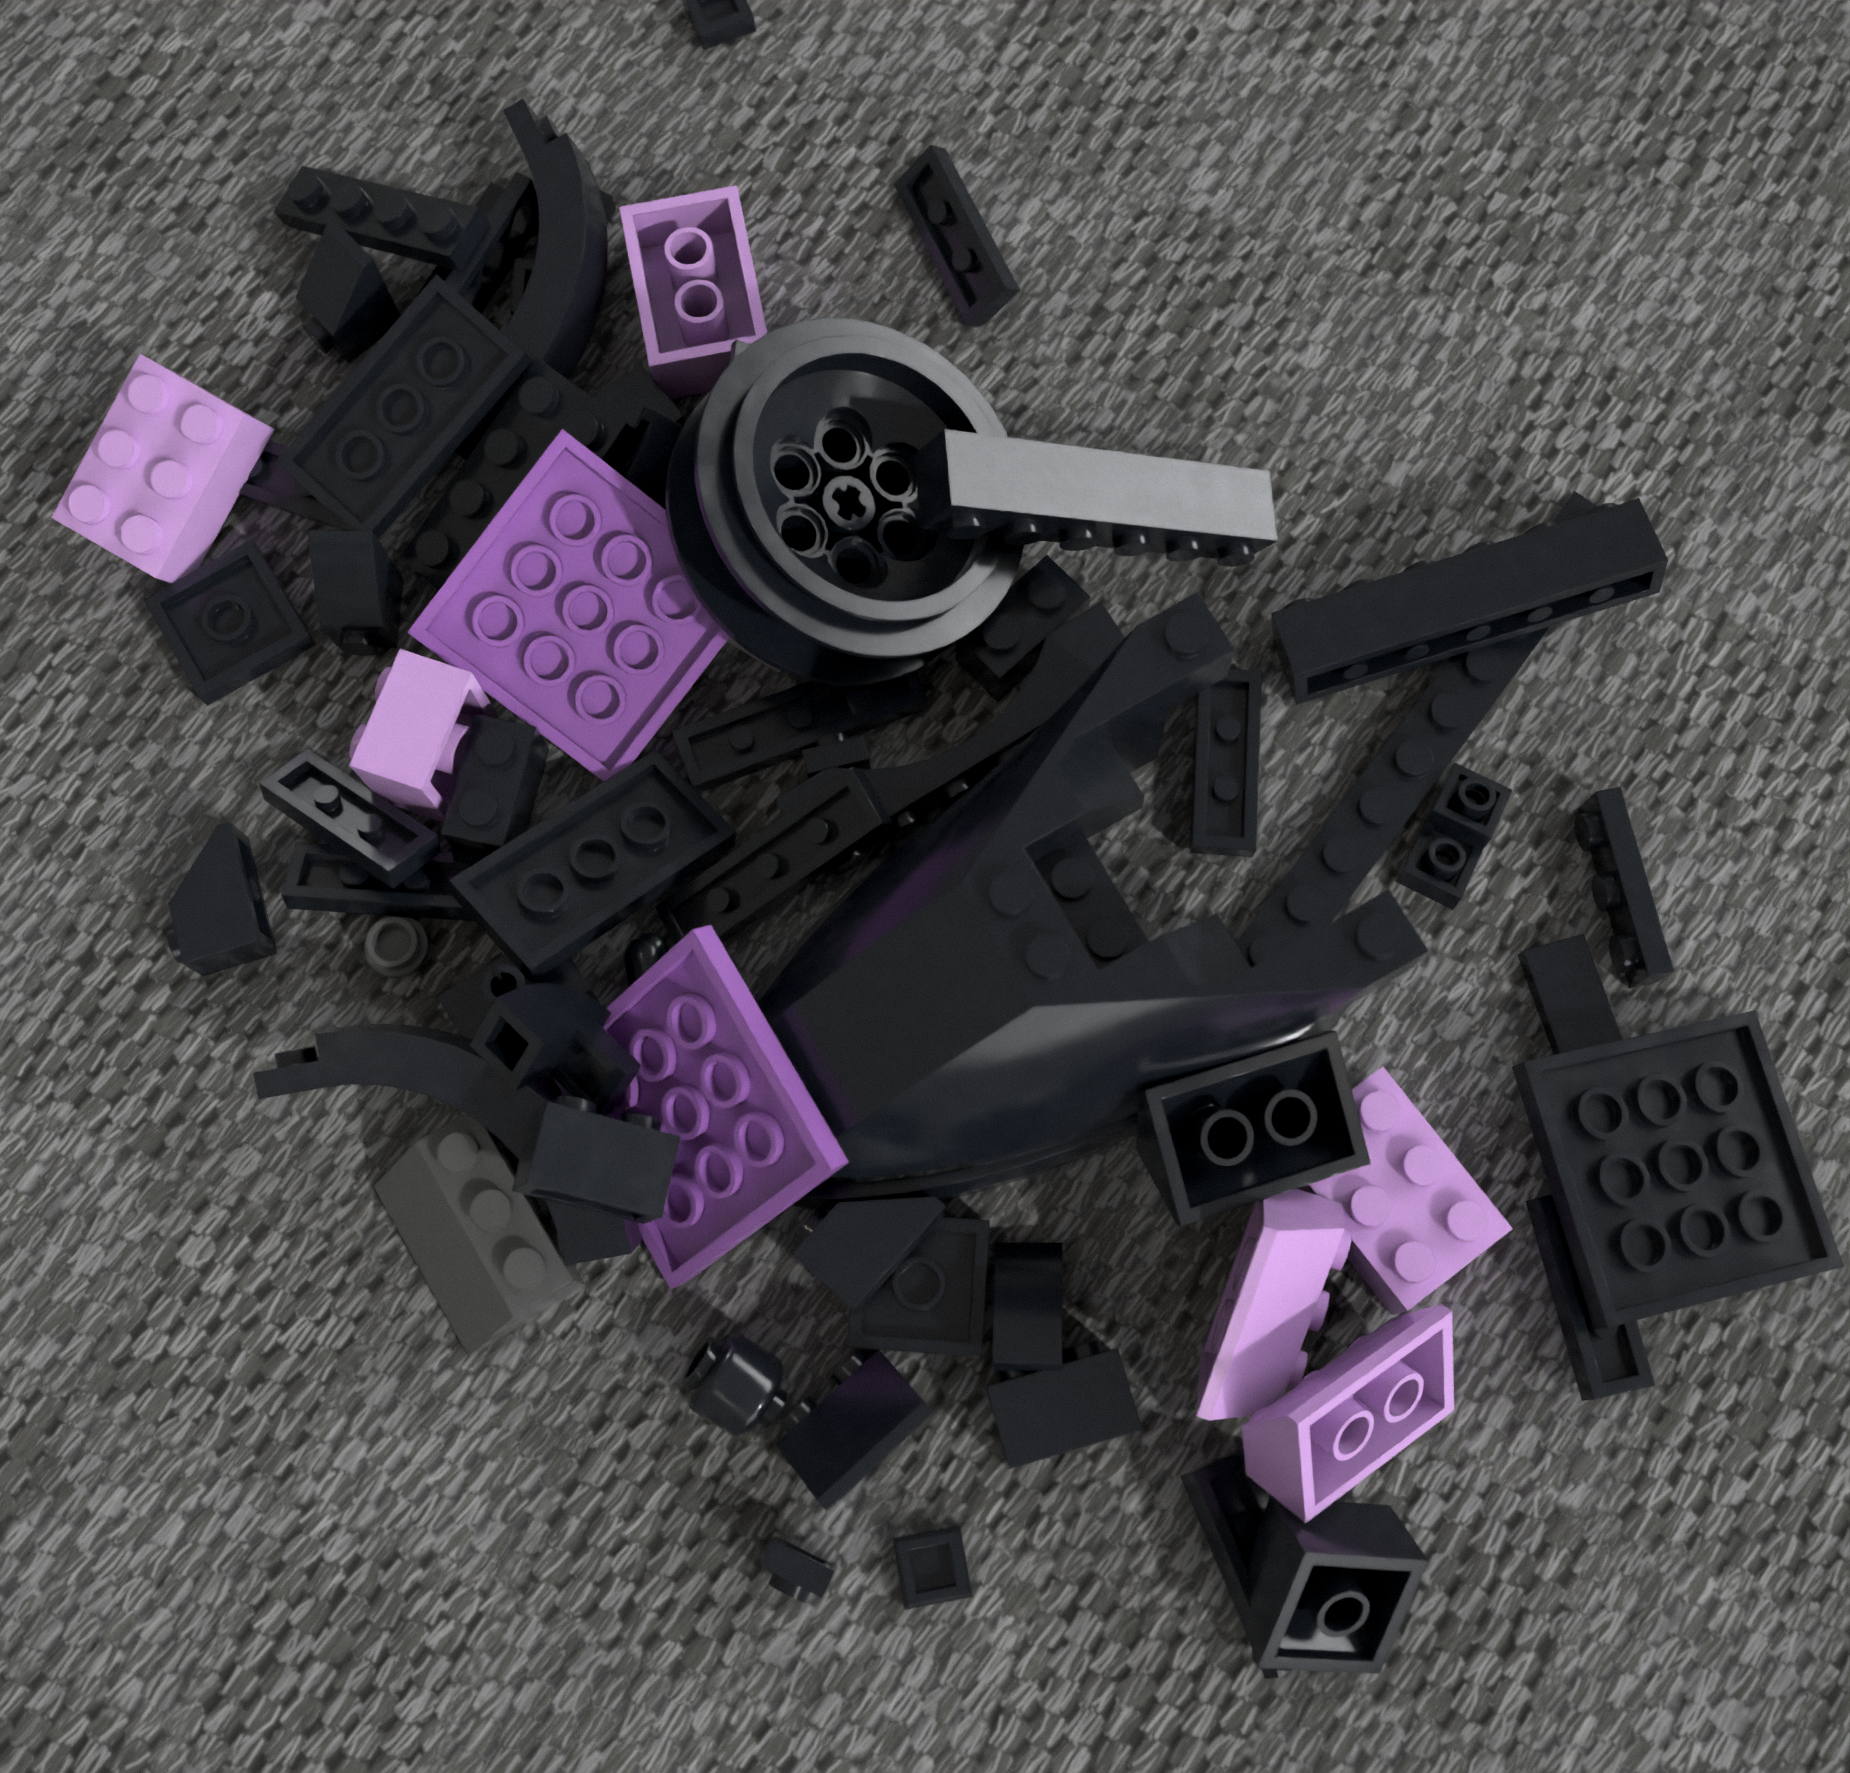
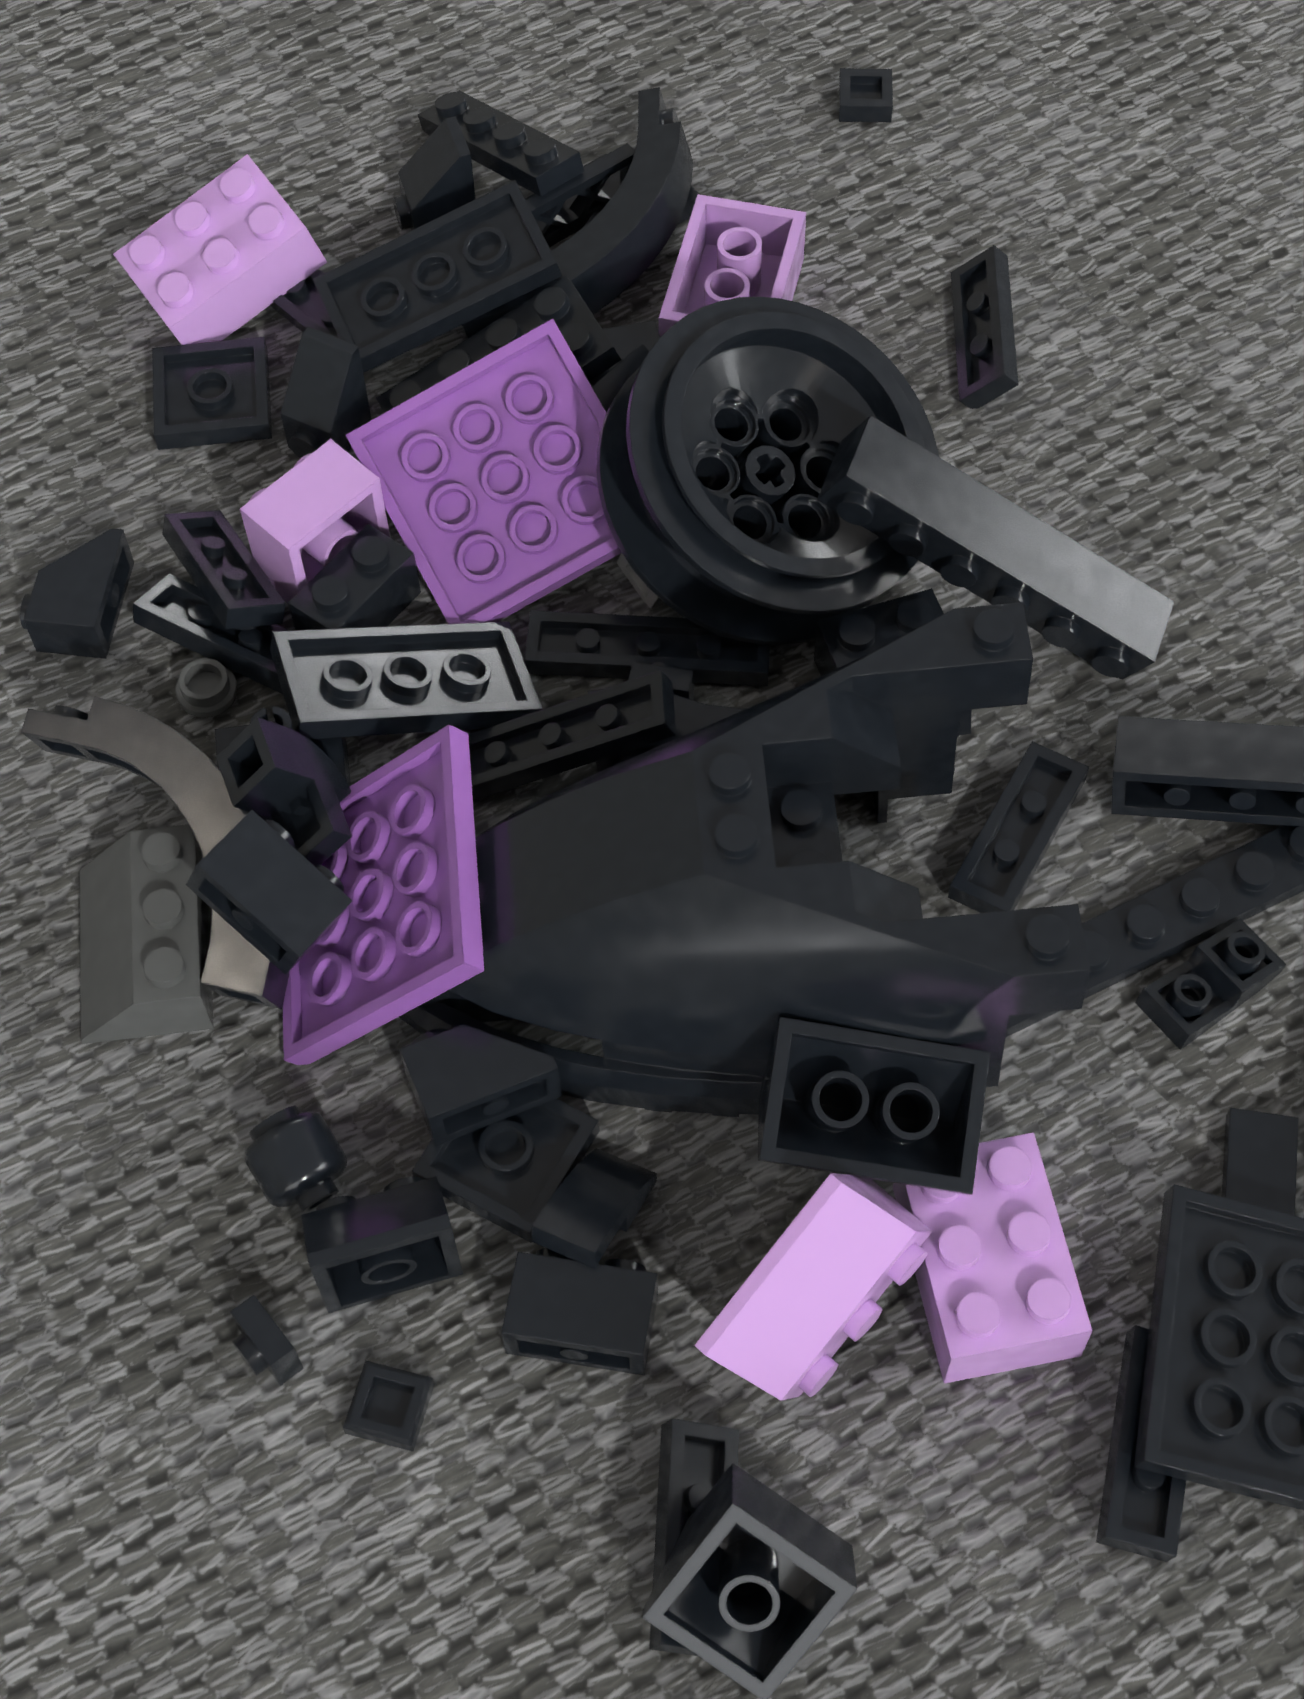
camera: 25 degrees right, 15 degrees down
(1353, 1412) = (852, 1416): lavender slope -> none

